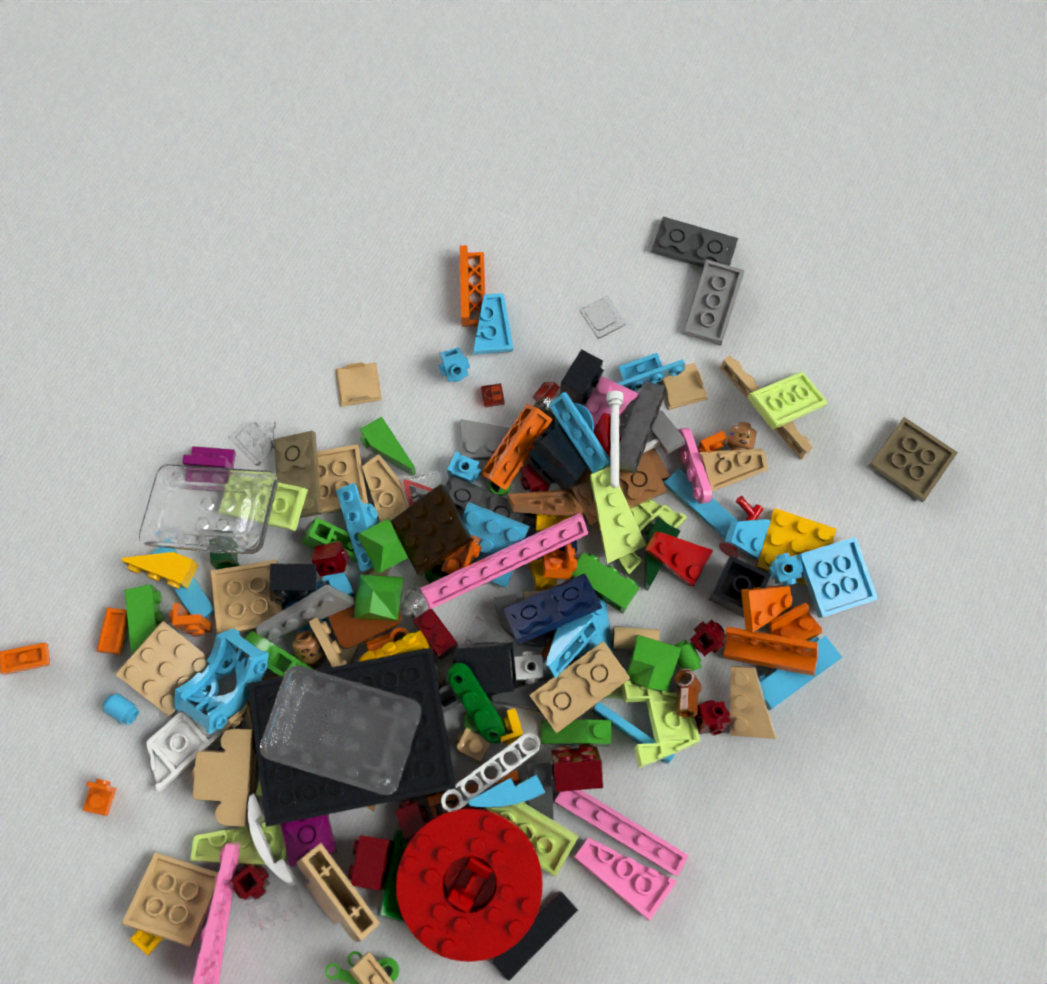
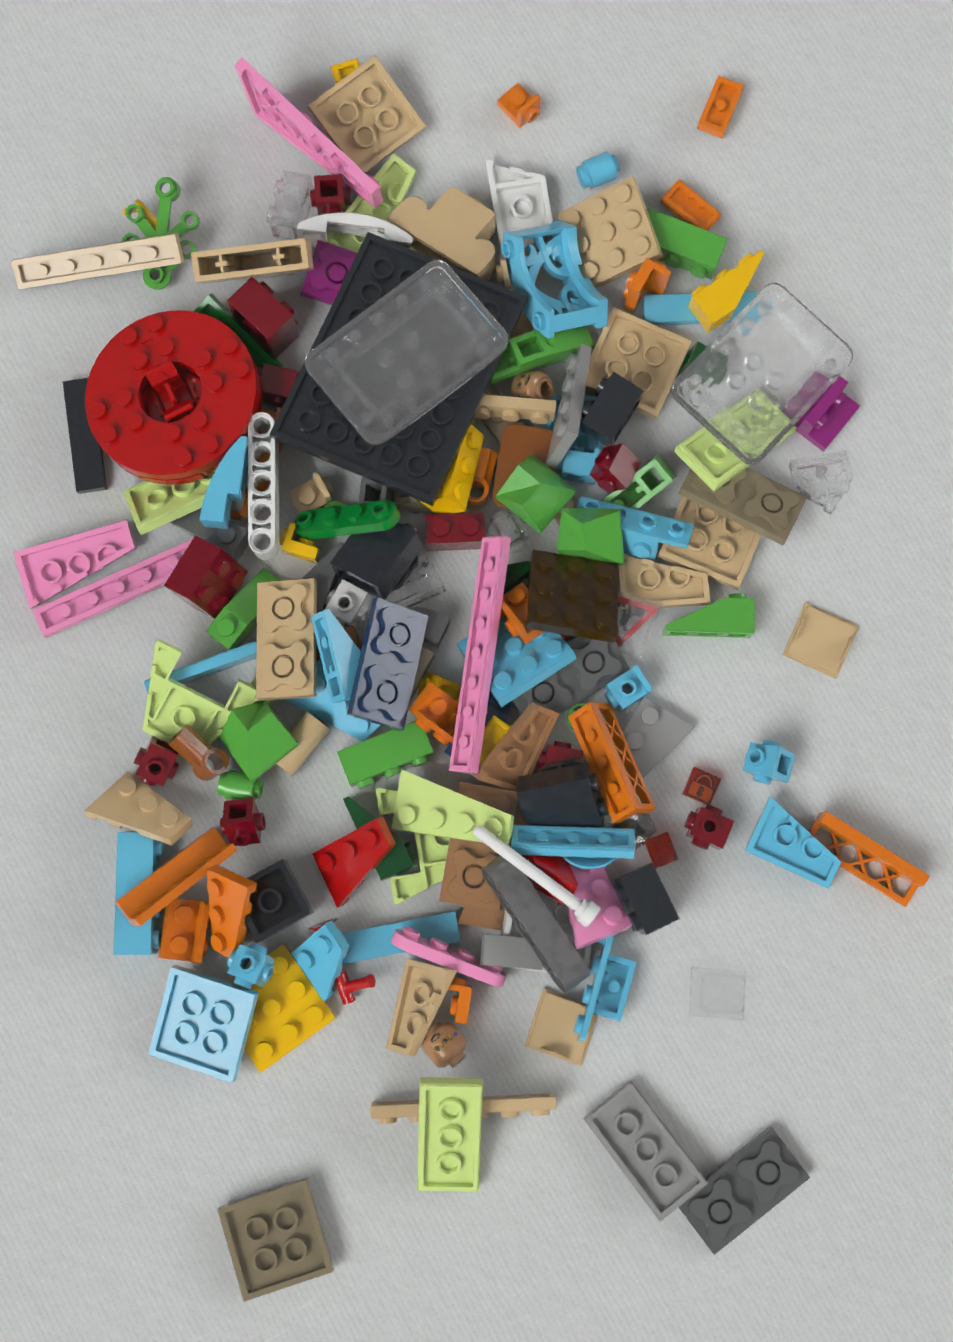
camera: 125 degrees right, 10 degrees up
(515, 373) = (719, 827): none -> dark red brick

